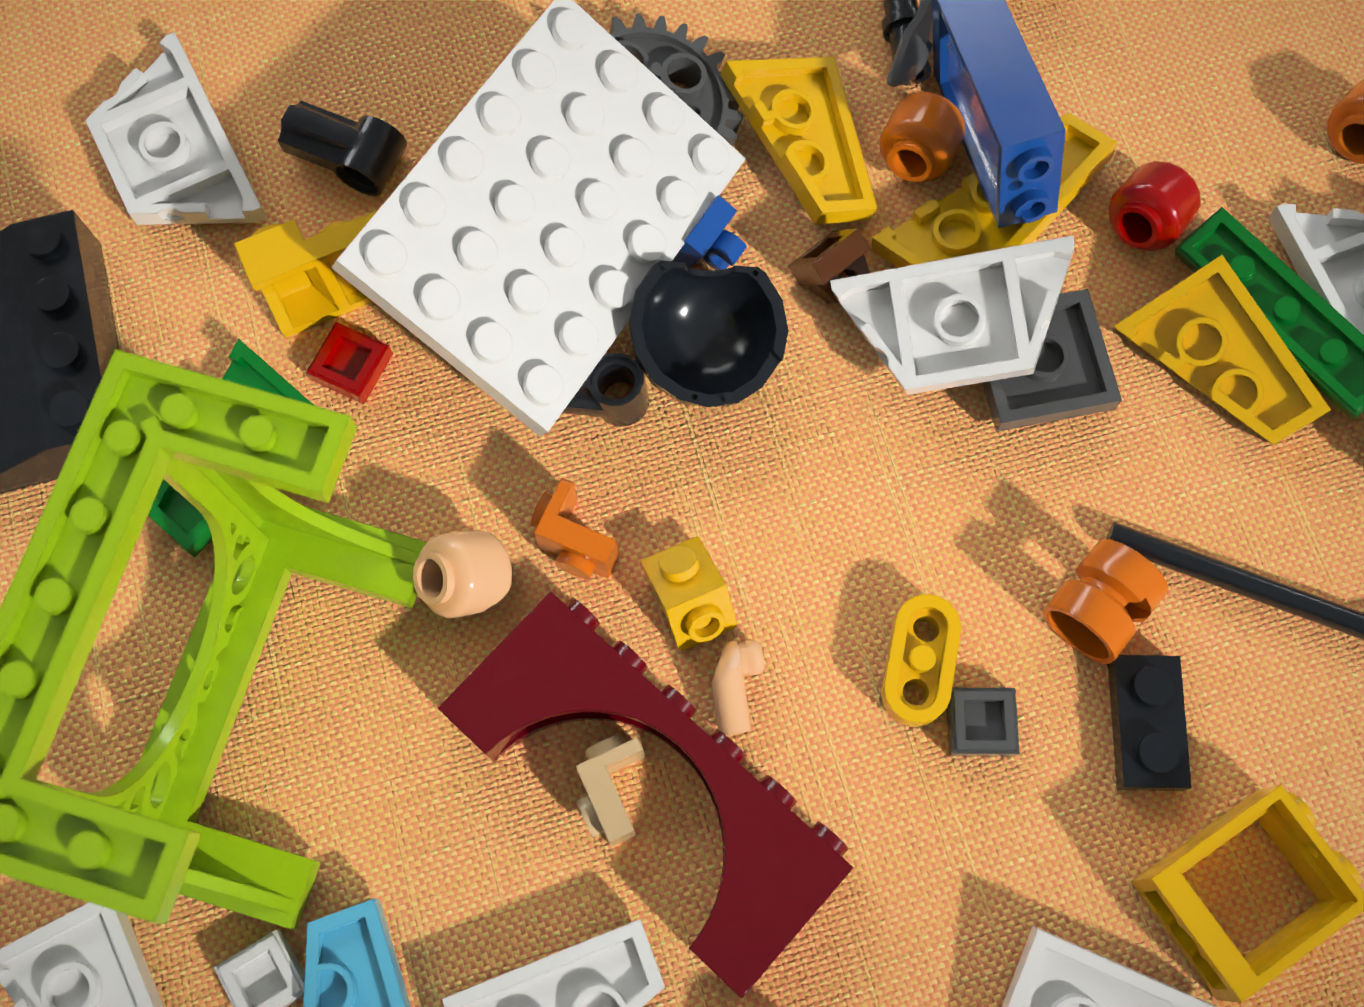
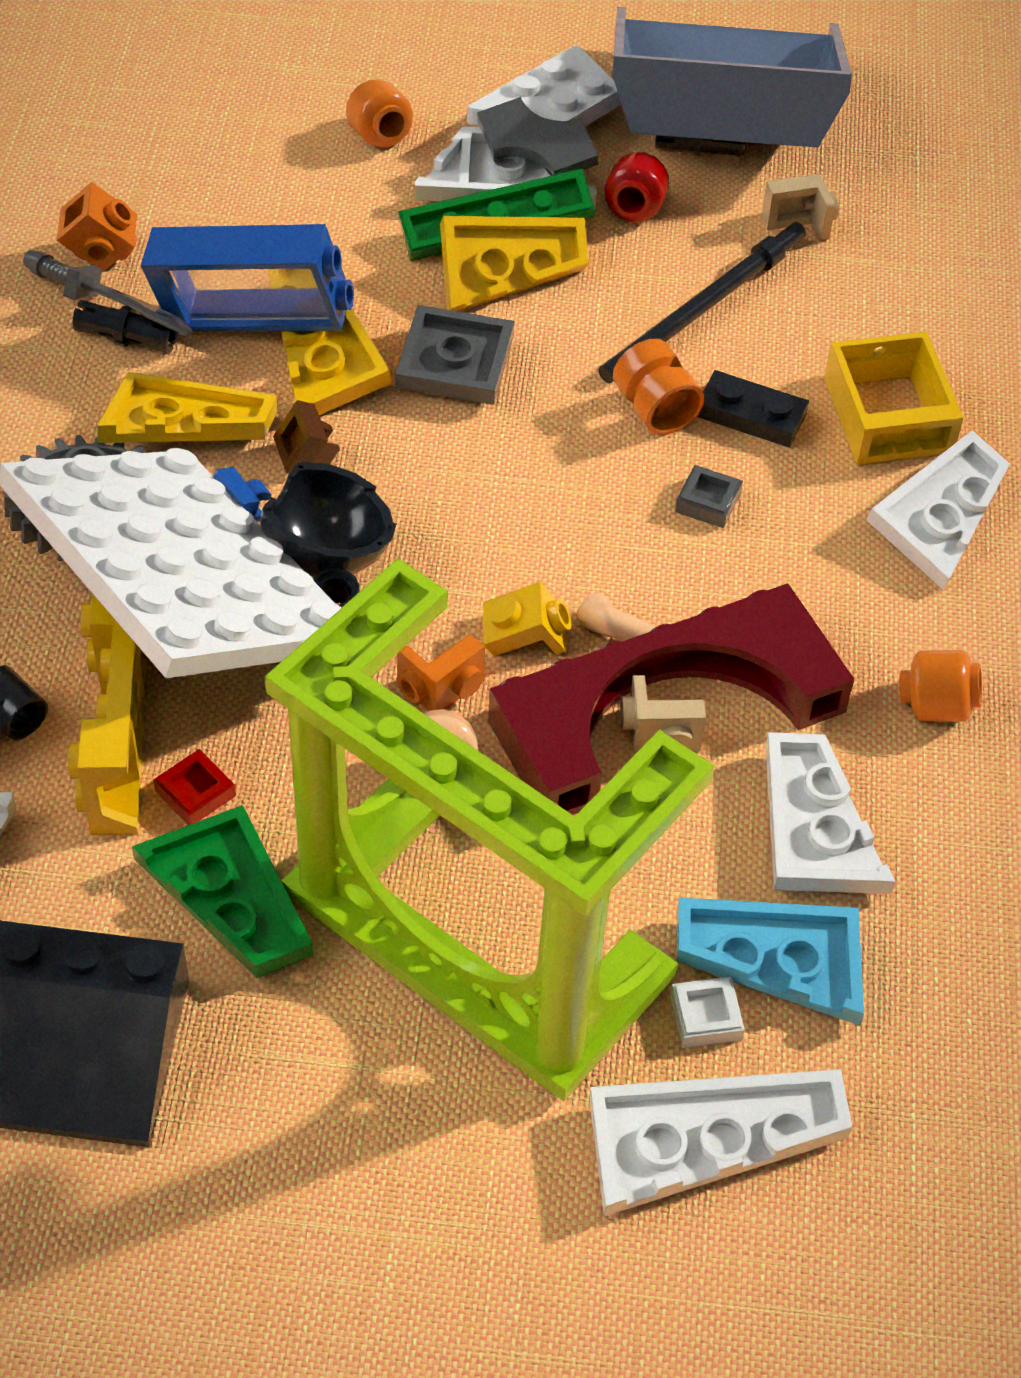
camera: 70 degrees left, 20 degrees down
(921, 662) = (652, 509): yellow plate -> none
(922, 137) = (234, 347): orange head -> none
(960, 315) = (402, 374): white wing -> none
(1154, 206) = (373, 246): red head -> none

